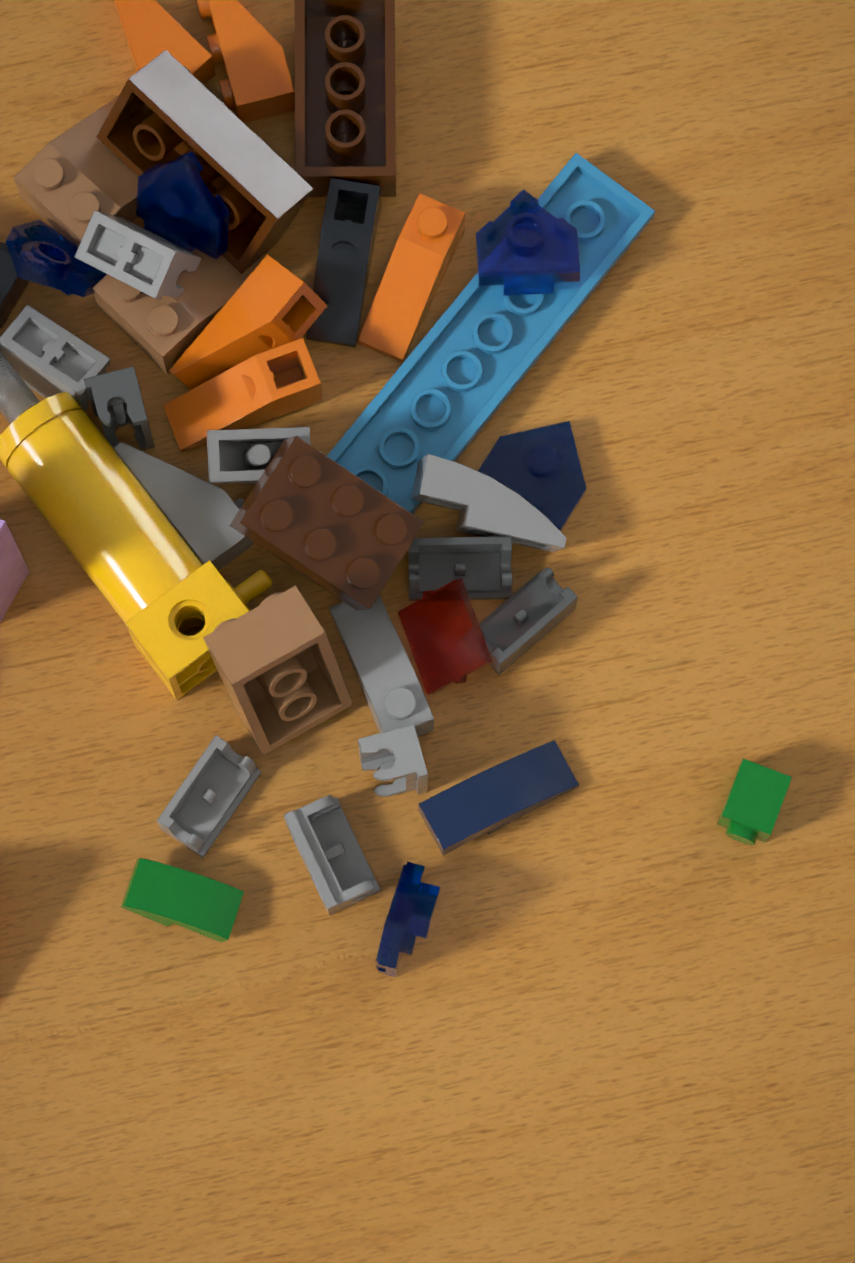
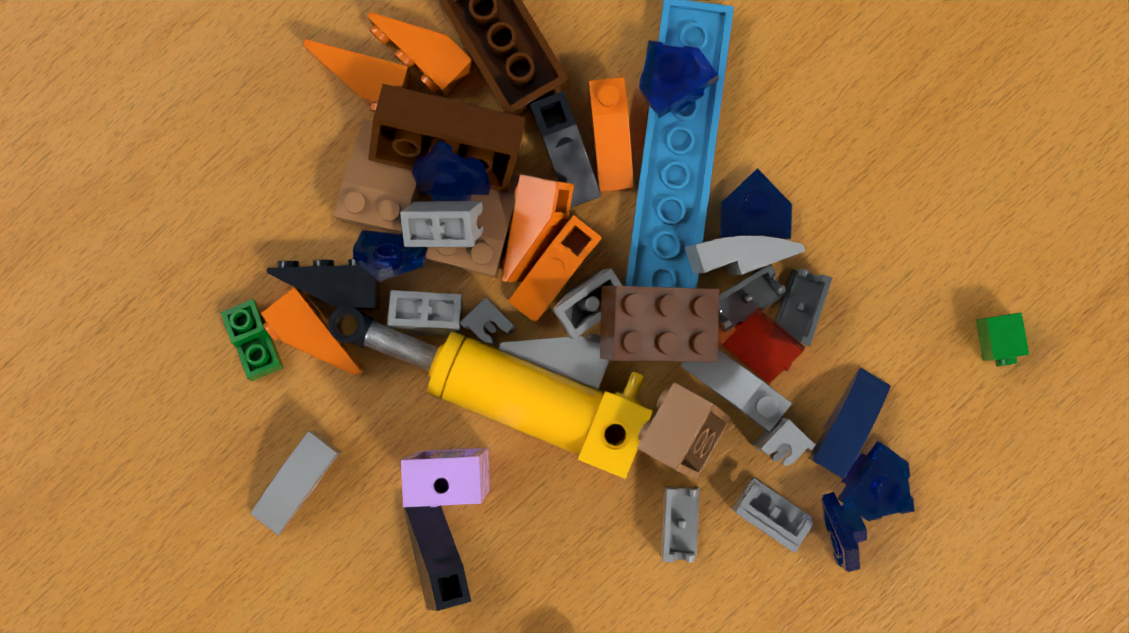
camera: 25 degrees left, 10 degrees up
(183, 899) = (701, 593): green slope -> none
(489, 896) = (878, 484): none -> clear blue plate

